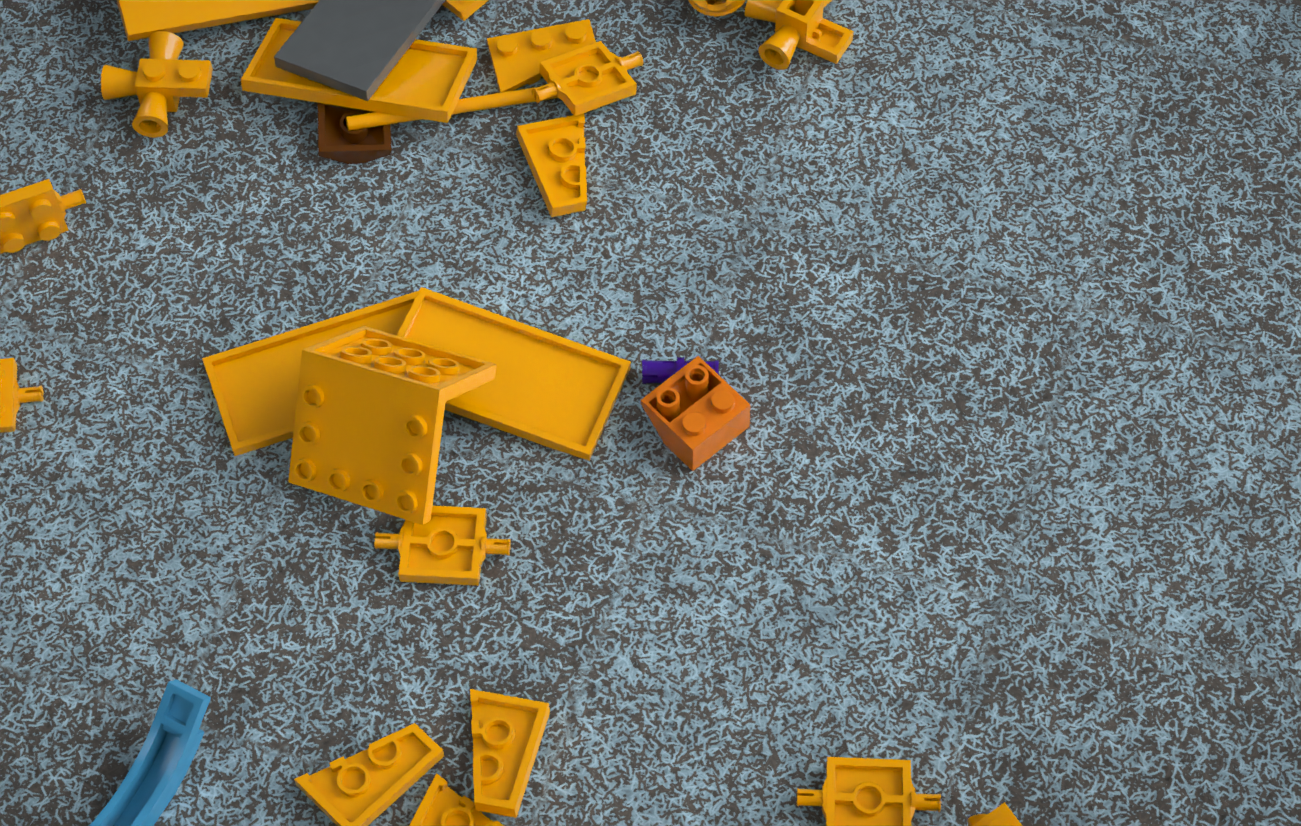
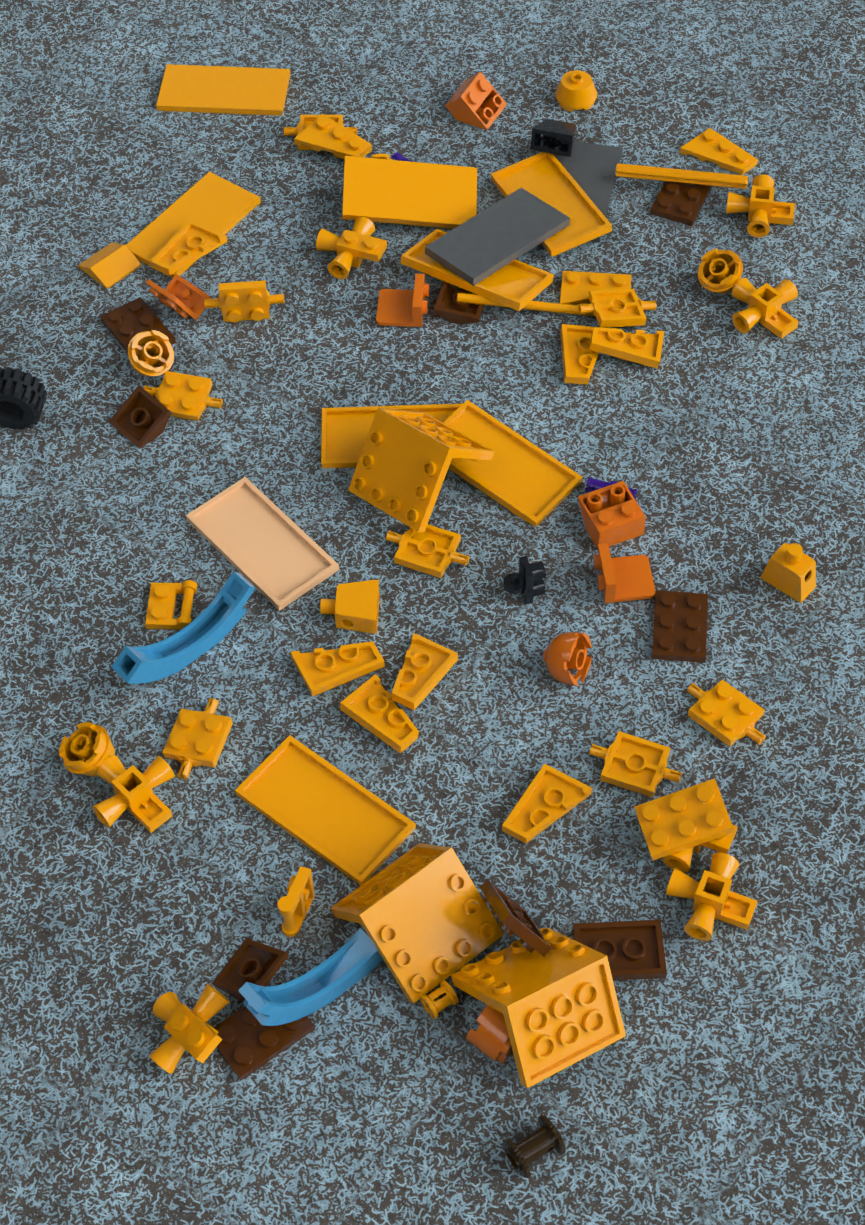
camera: 20 degrees right, 5 degrees down
(66, 759) = (162, 605): none -> light orange plate
(186, 608) = (262, 543): none -> light nougat tile
(268, 157) = (403, 306): none -> orange bracket
(367, 672) = (355, 606): none -> light orange torso
(613, 554) = (527, 580): none -> black hips
(631, 133) = (634, 347): none -> light orange wing
(713, 655) = (568, 652): none -> orange cylinder
(746, 504) = (623, 577): none -> orange bracket
(853, 559) = (680, 626): none -> reddish brown plate
(966, 677) = (726, 713): none -> light orange plate
(983, 429) = (791, 571): none -> light orange torso

